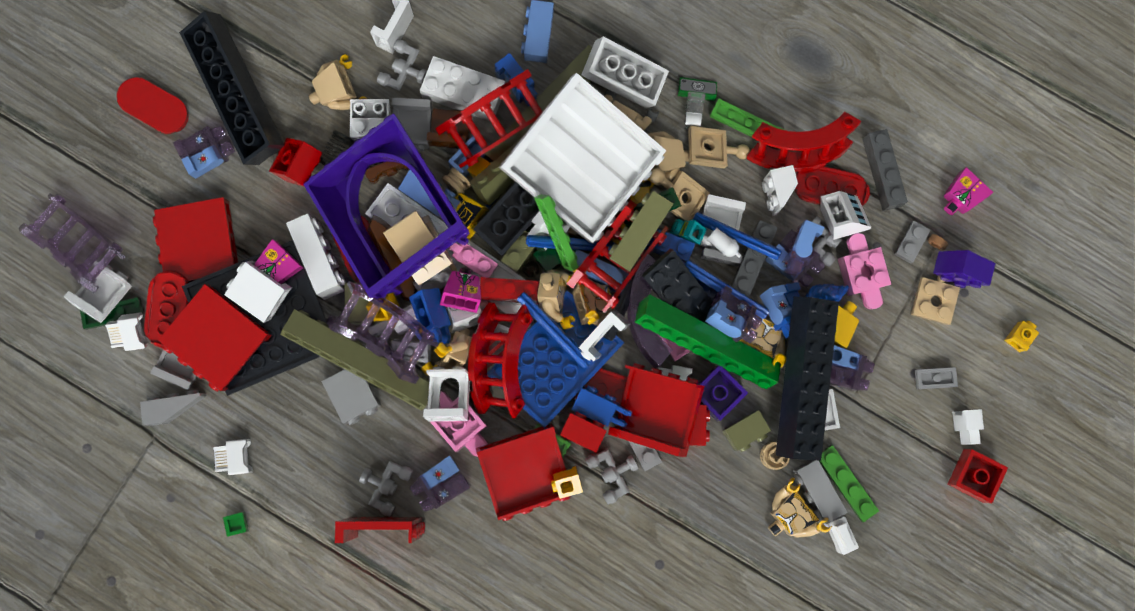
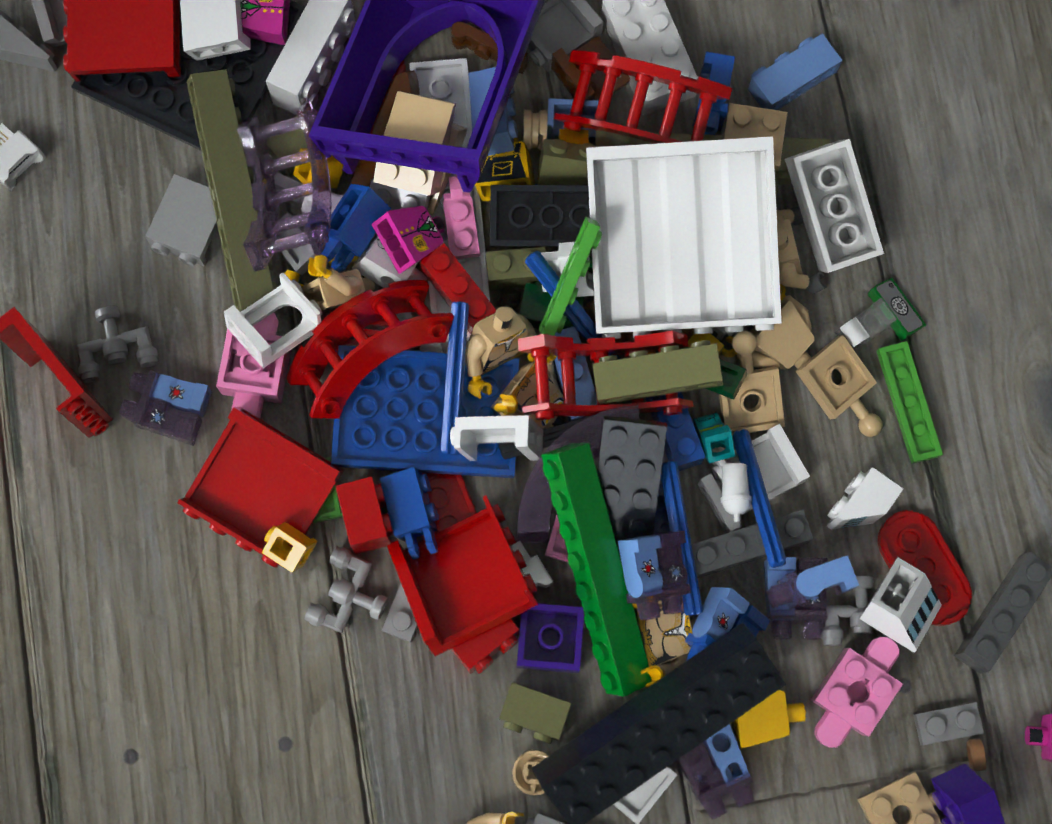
camera: 50 degrees right, 5 degrees down
(552, 76) = (756, 122): none -> tan plate
(813, 147) = (983, 507): red fence -> none
(827, 292) = (791, 669): blue hair -> none

